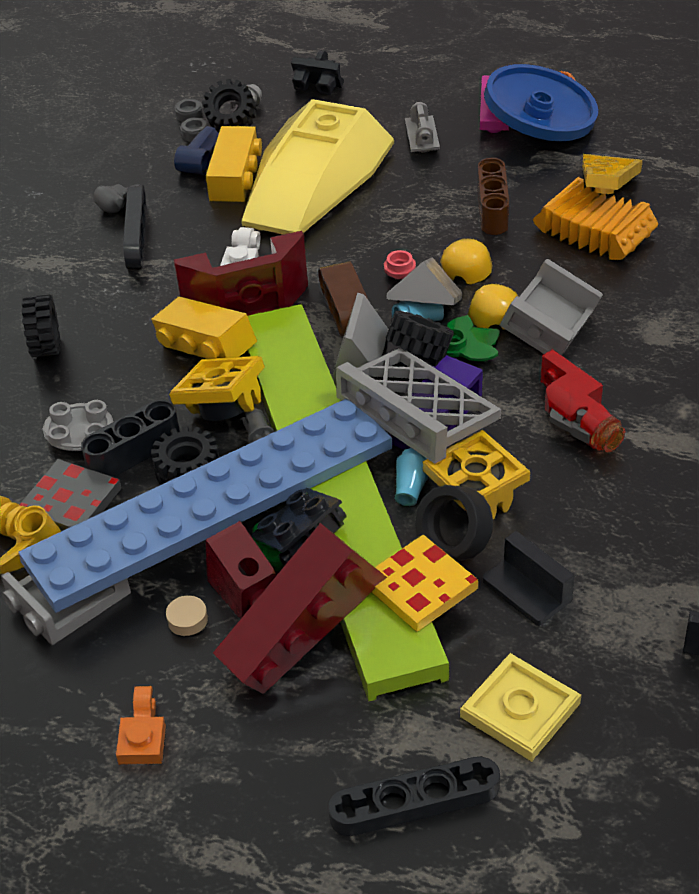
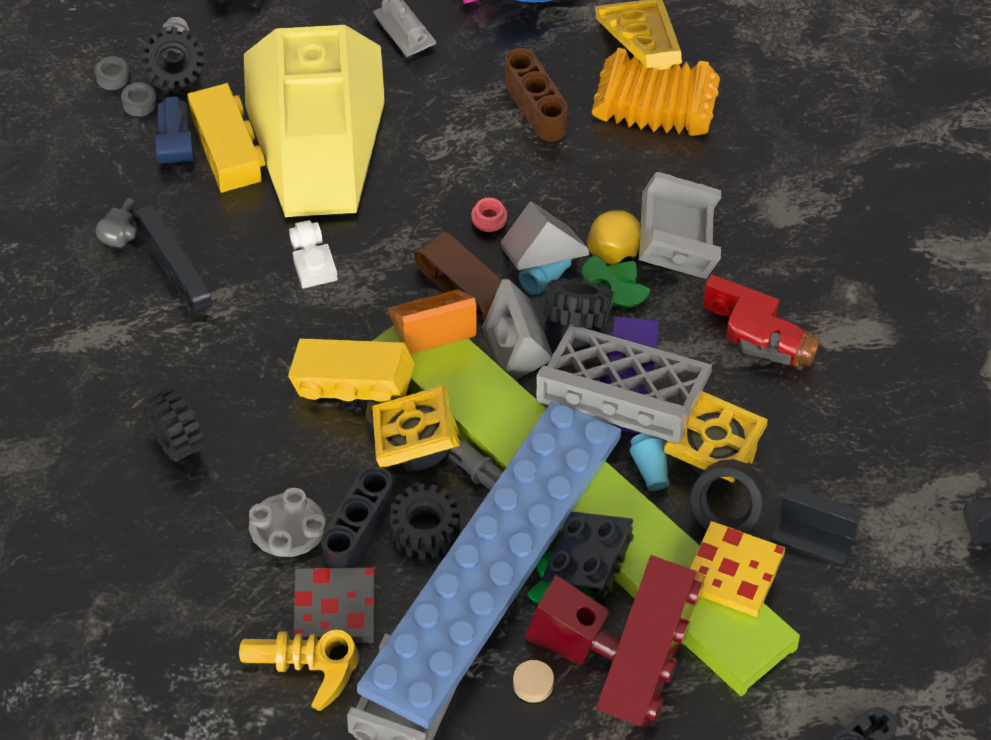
camera: 30 degrees left, 10 degrees up
(250, 284) = (358, 308): dark red slope -> none
(290, 314) = (435, 320): none -> orange slope
(468, 260) = (554, 187): yellow hair -> none
(520, 706) = (872, 649): light yellow tile -> none

